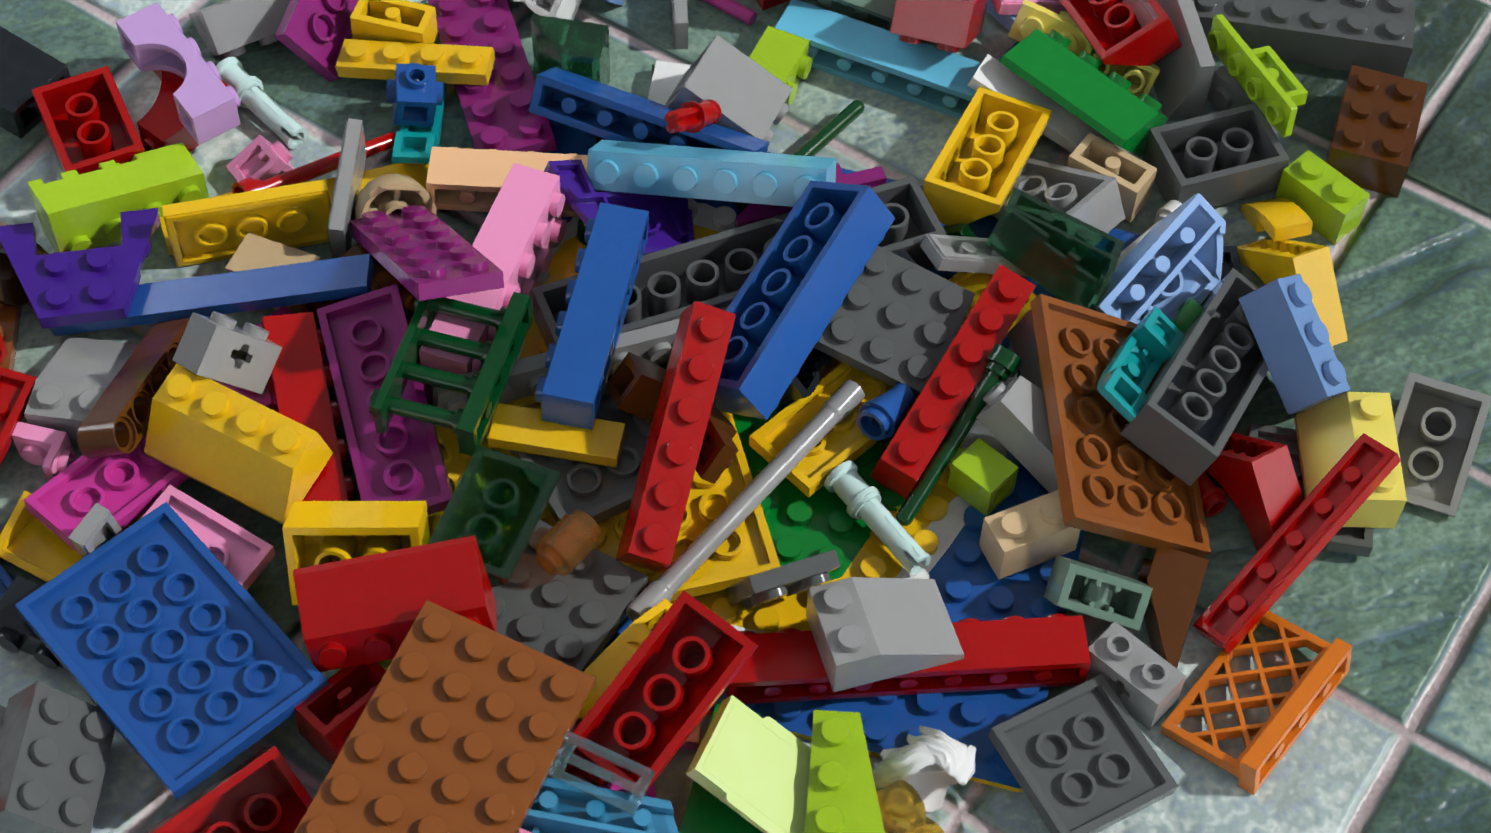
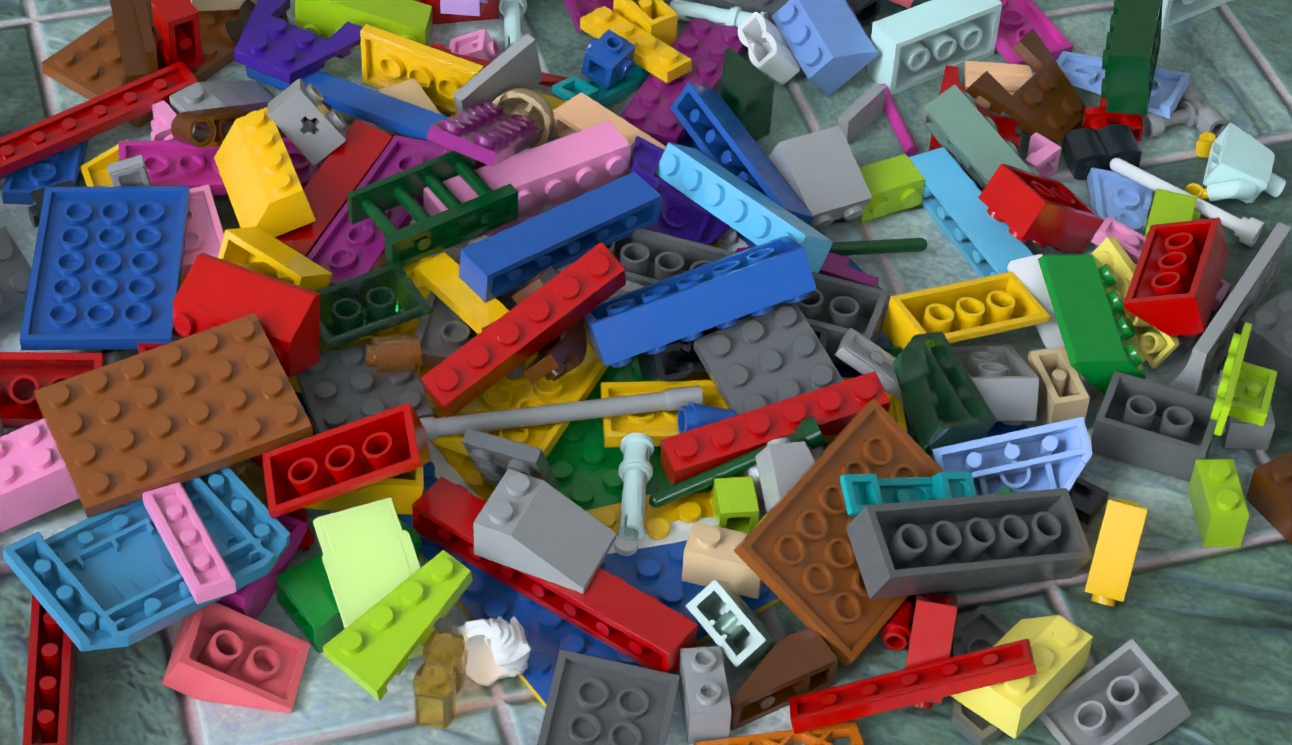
camera: 40 degrees right, 10 degrees down
(566, 756) = (249, 462): clear light blue tile -> none
(693, 116) = (761, 161): red axle -> none
(1278, 217) = (1162, 494): yellow slope -> none
(1294, 343) = (1054, 558): medium blue slope -> none

